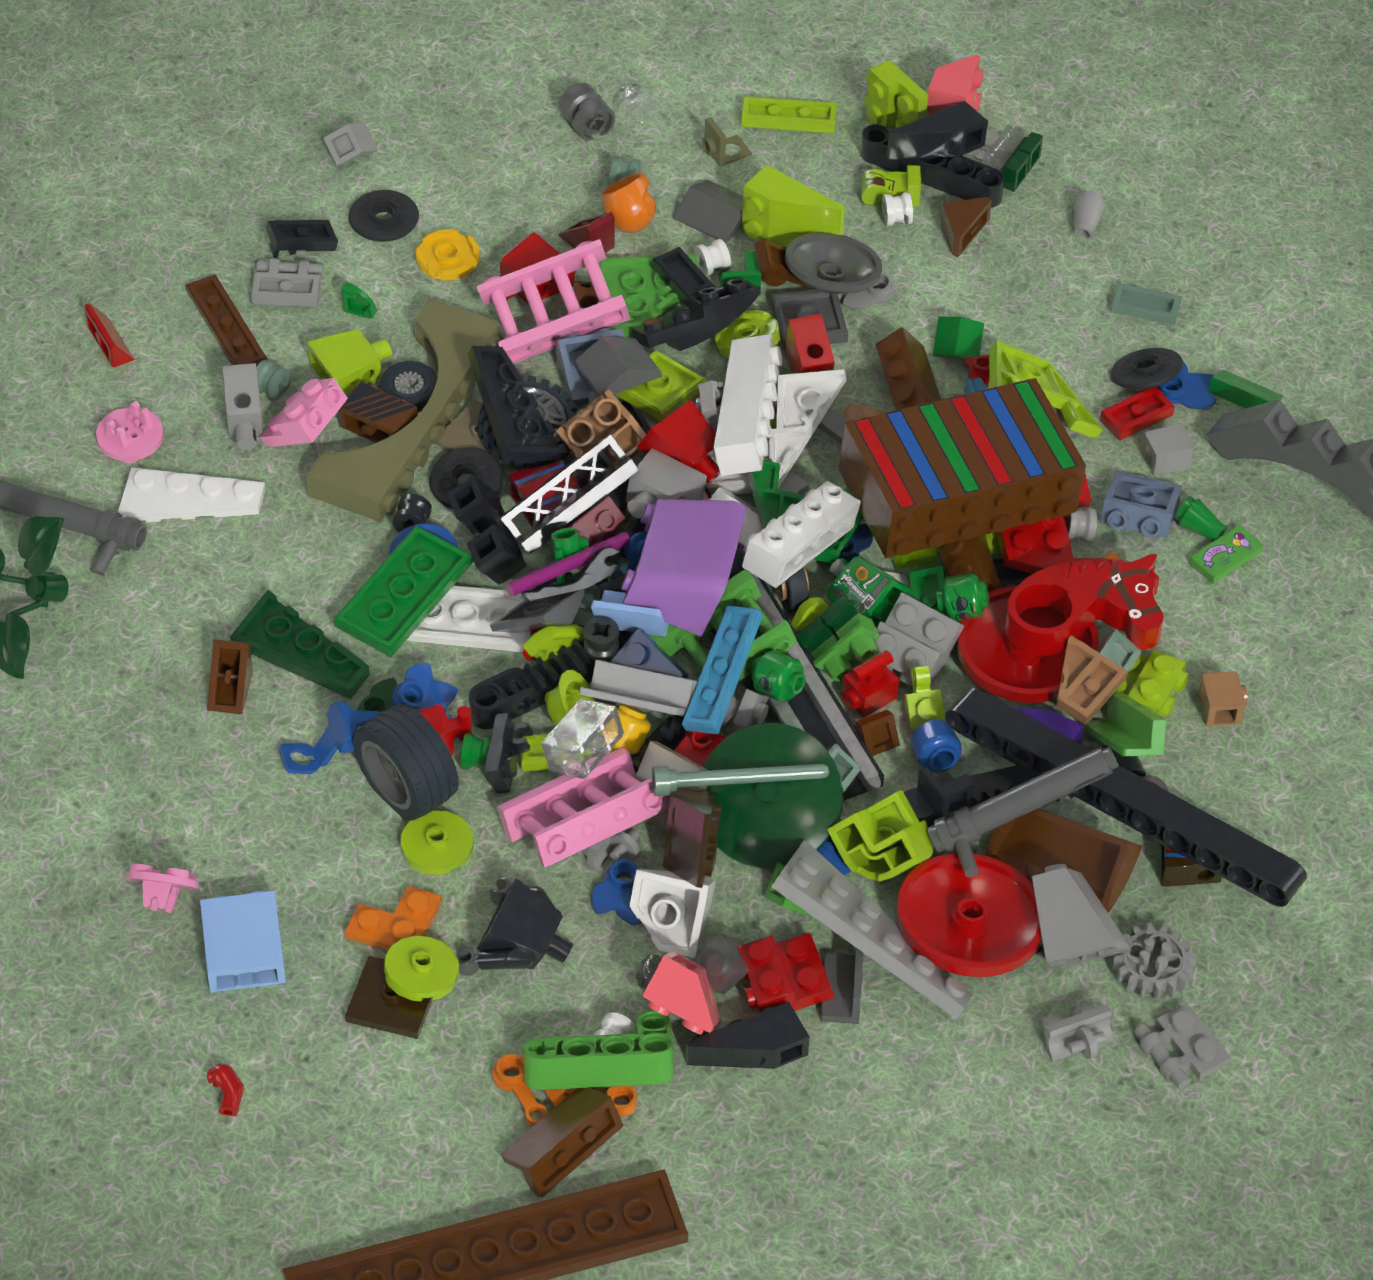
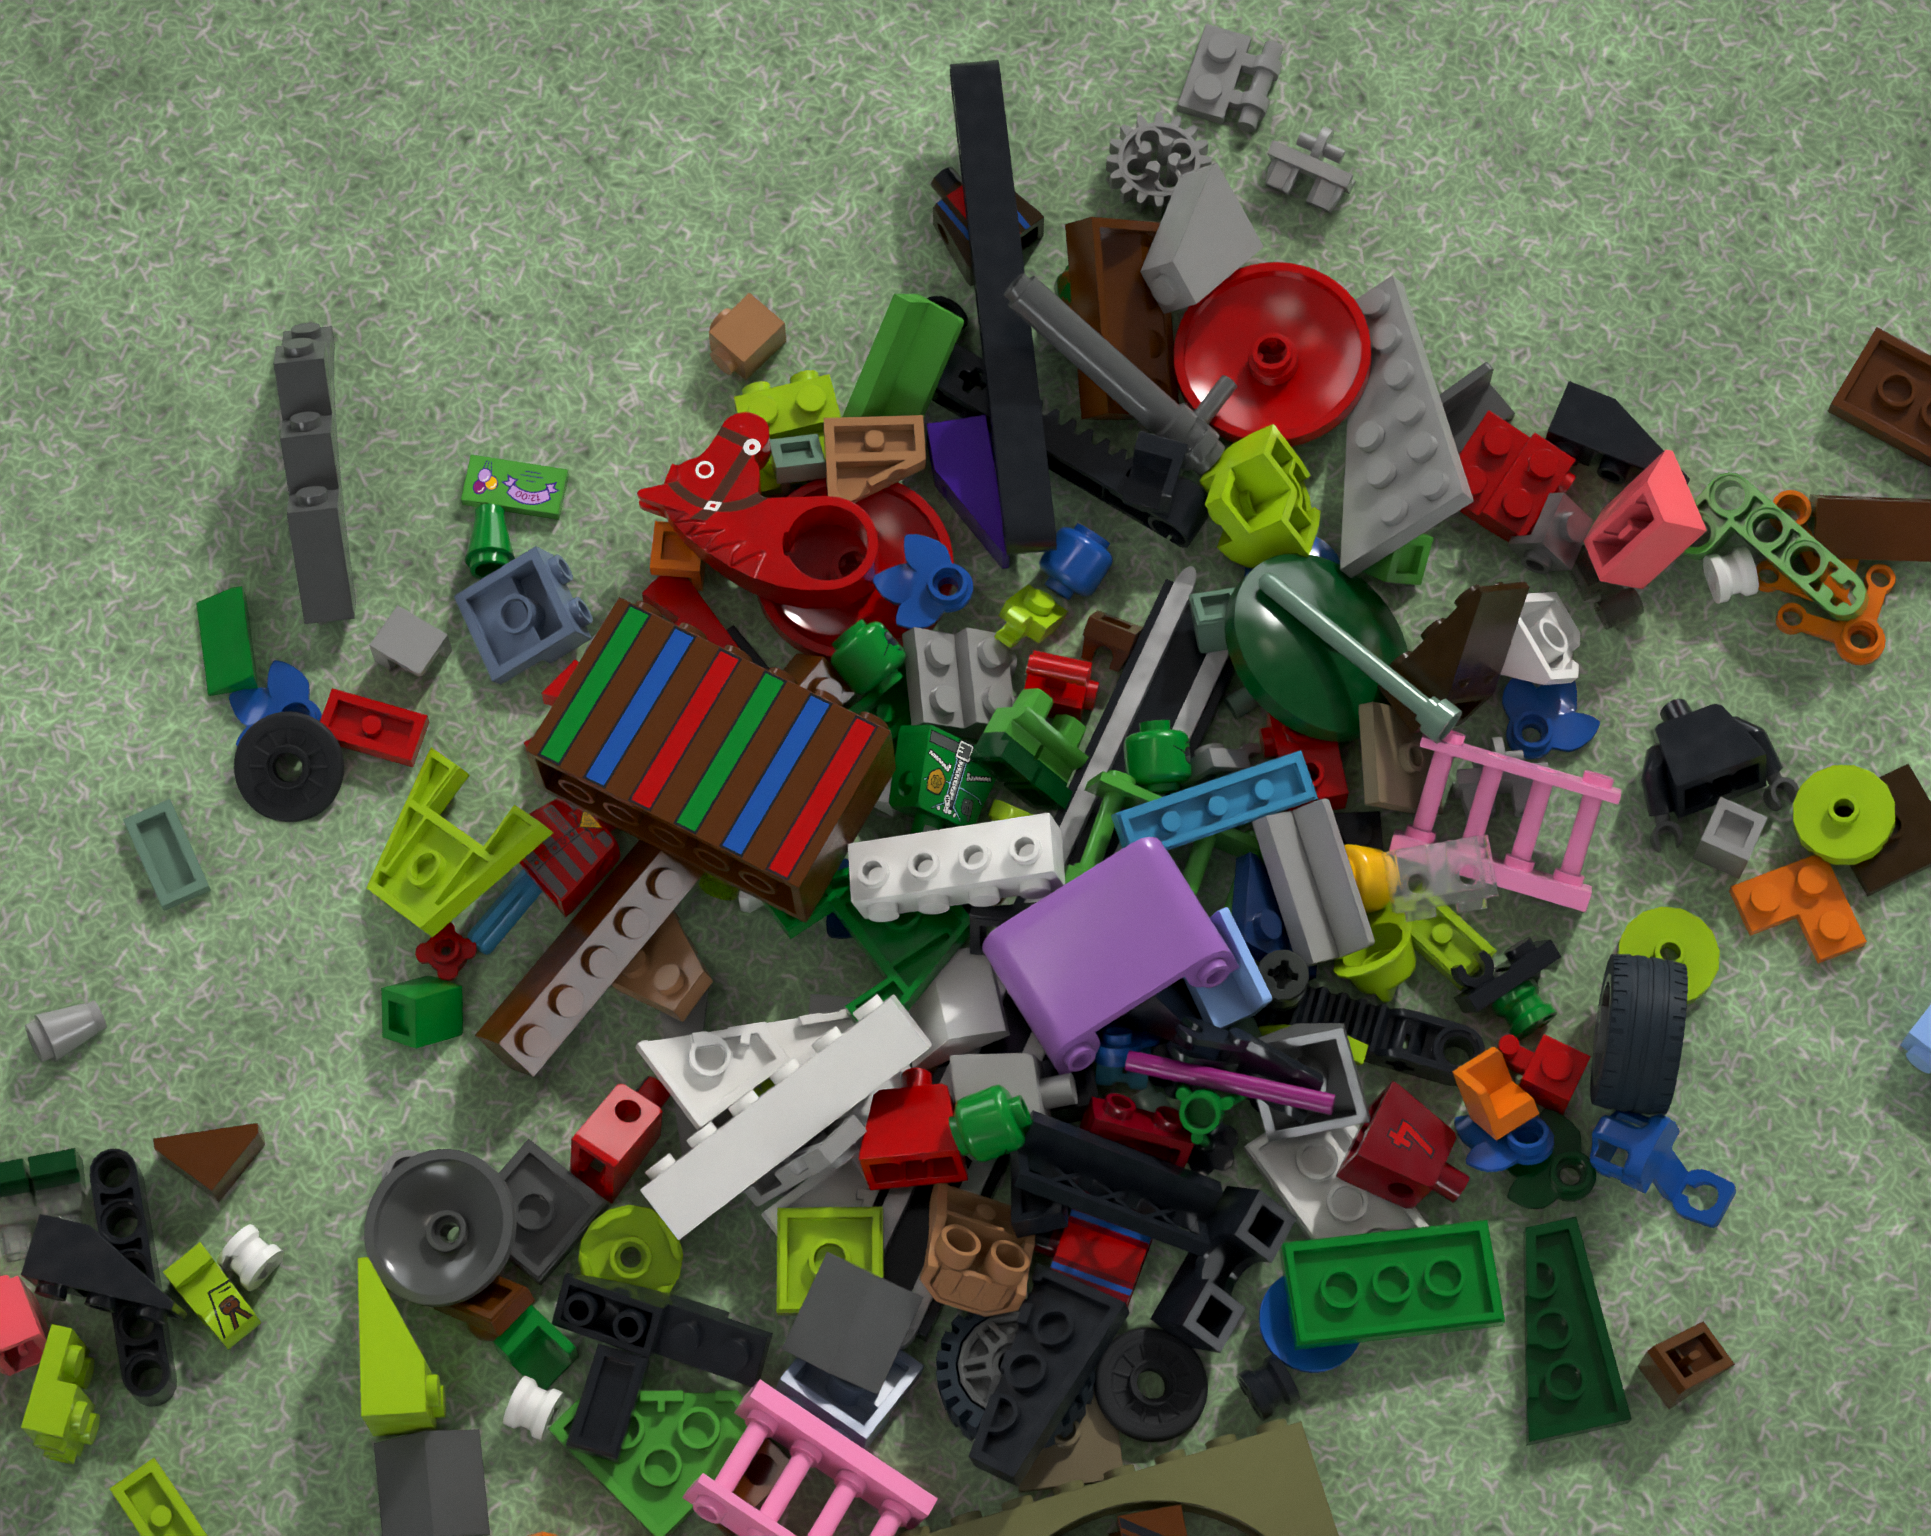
camera: 130 degrees left, 20 degrees up
(447, 686) = (1492, 1096): none -> orange panel
(461, 638) = (1402, 1152): none -> dark red torso
(466, 903) = (1730, 837): none -> light grey panel
(650, 445) = (989, 1123): none -> green head
(983, 653) = (917, 583): none -> blue plate

